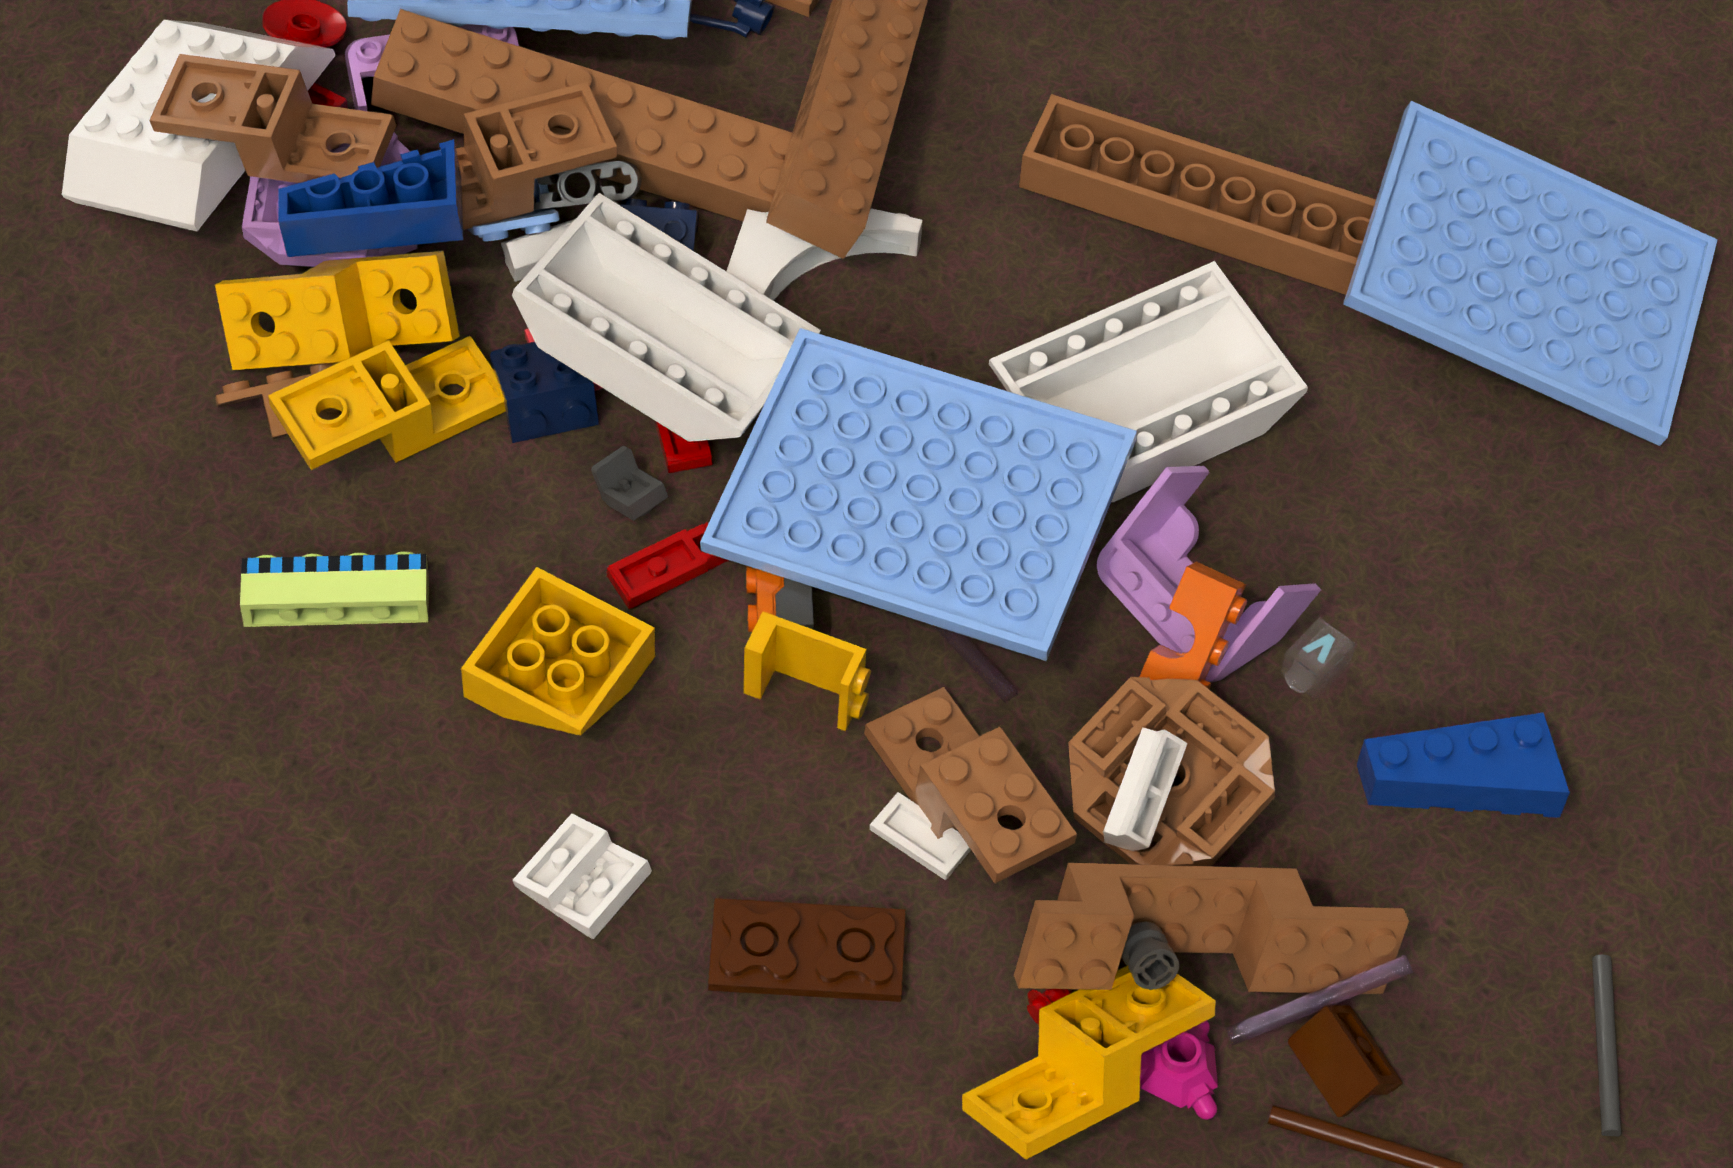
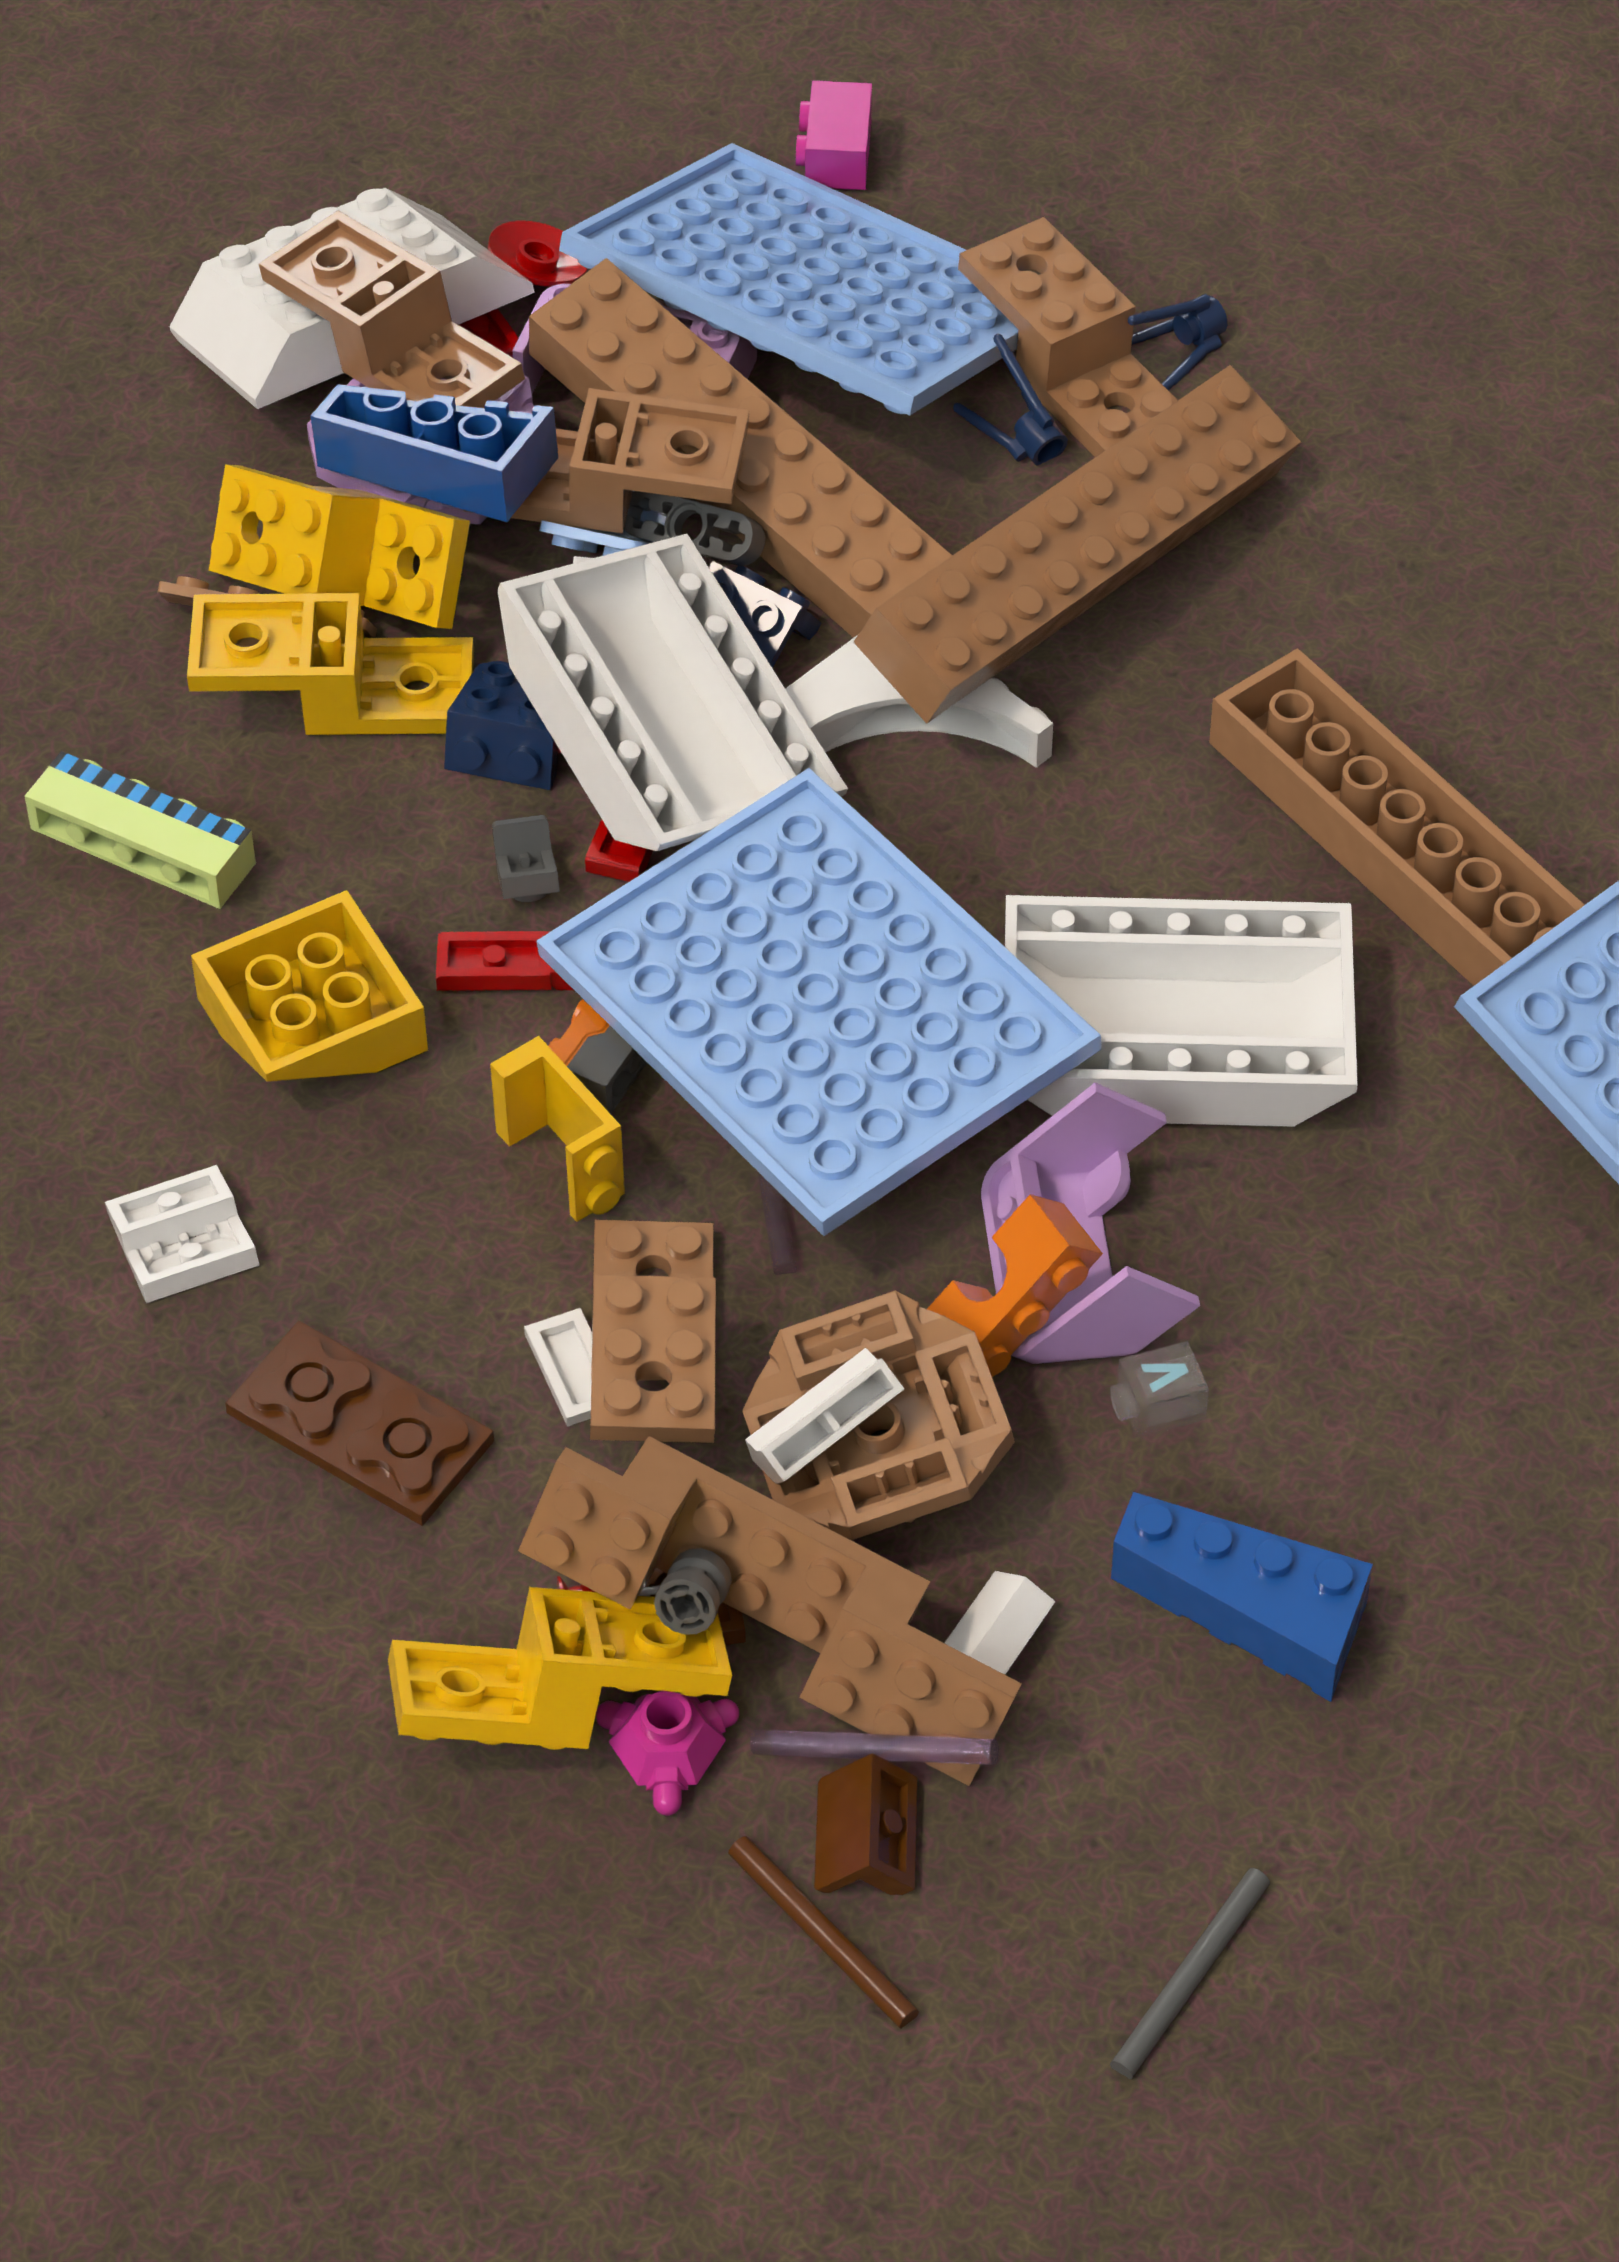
camera: 35 degrees right, 5 degrees down
(1331, 870) = (1001, 1620): none -> white piece

